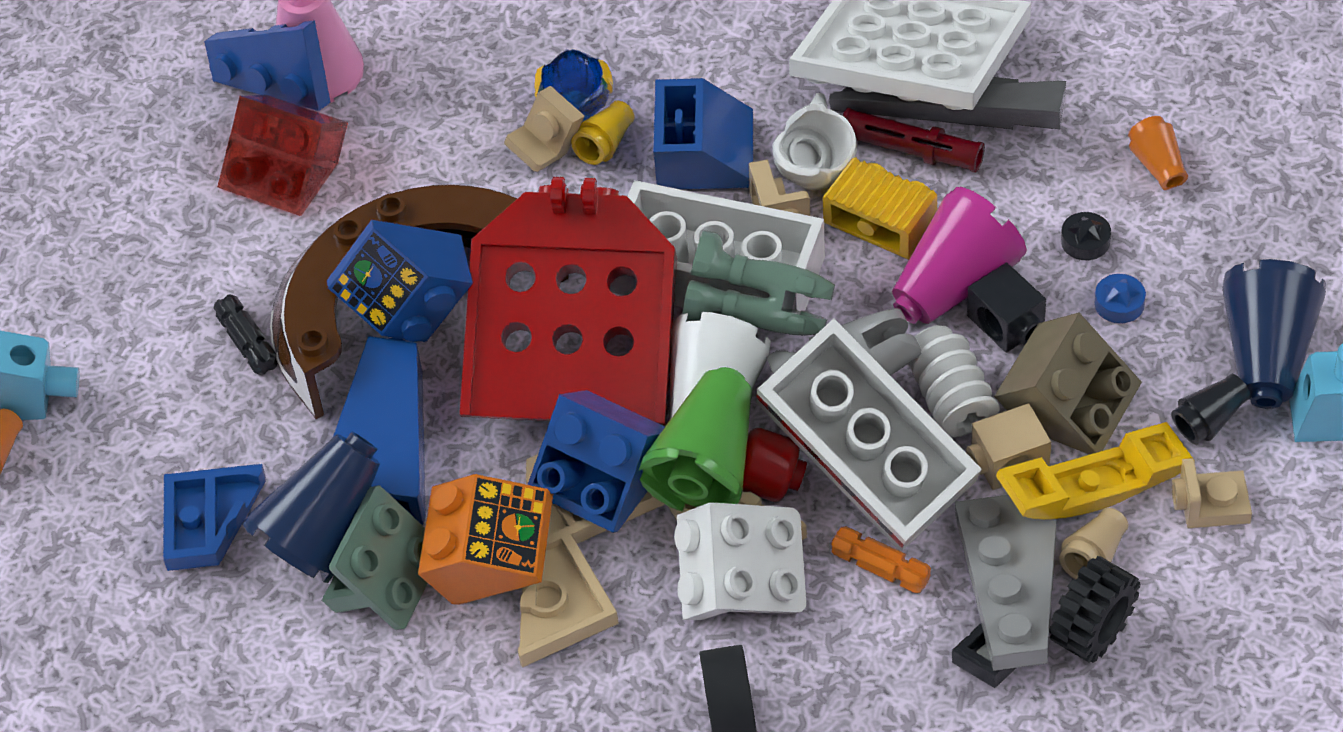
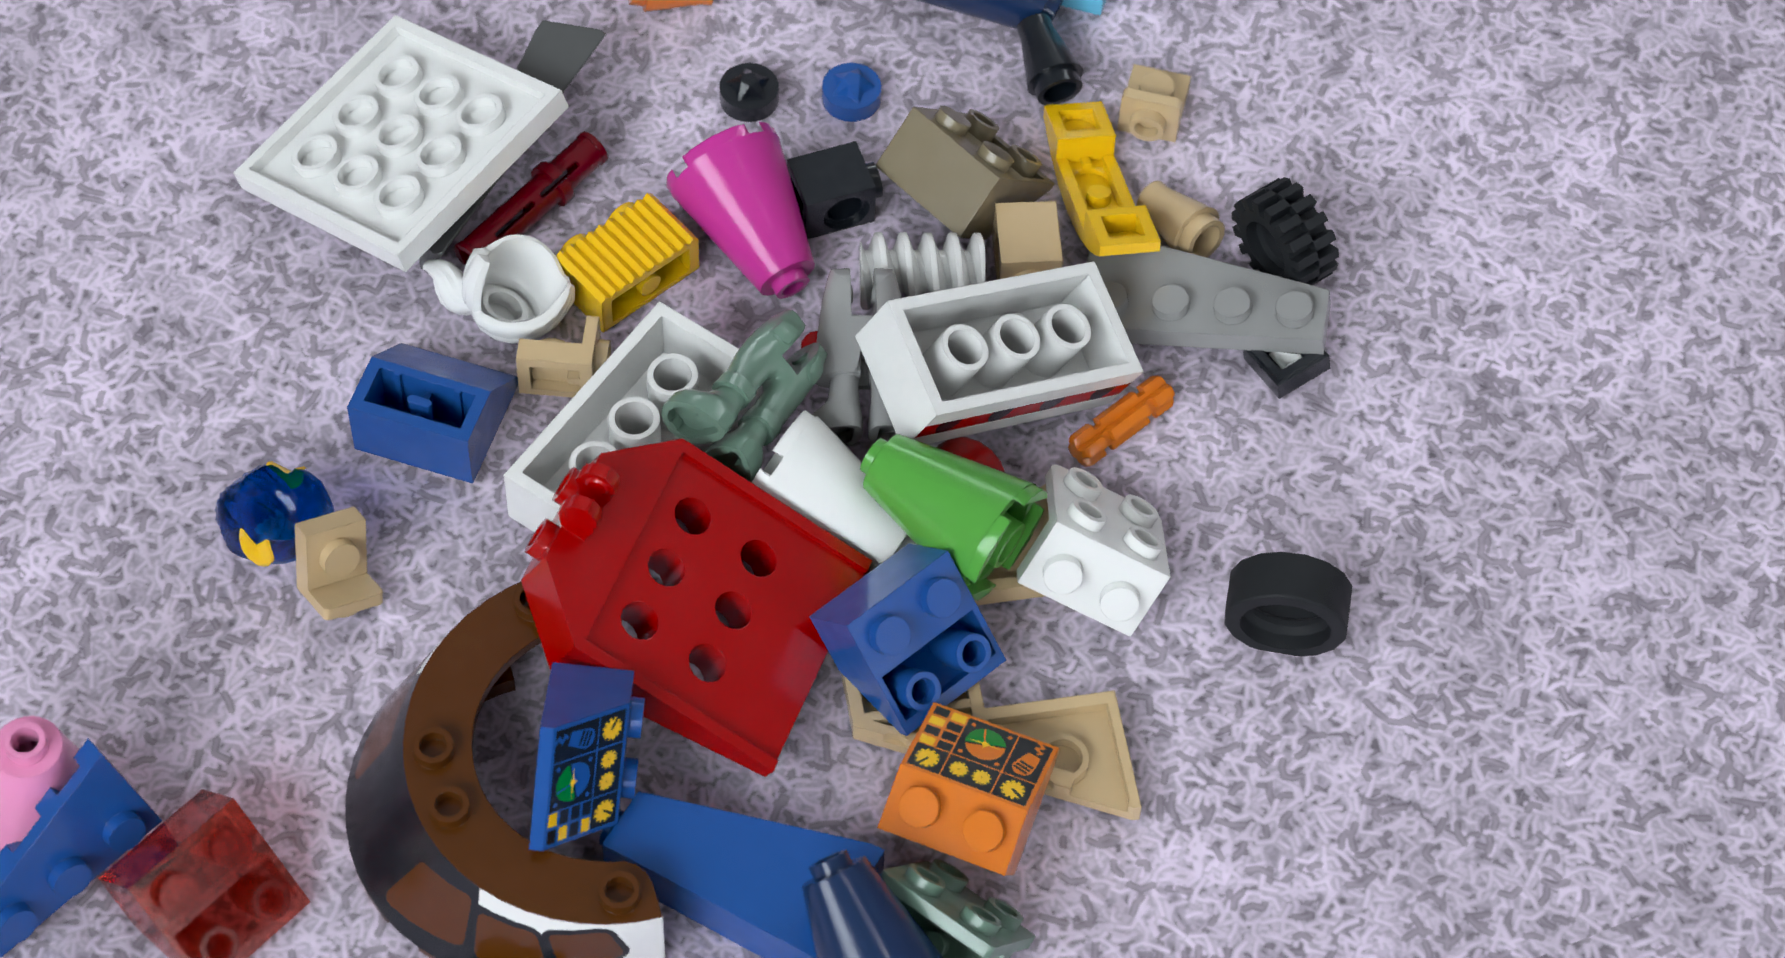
camera: 80 degrees left, 5 degrees up
(602, 133) = (378, 509): yellow cone -> none

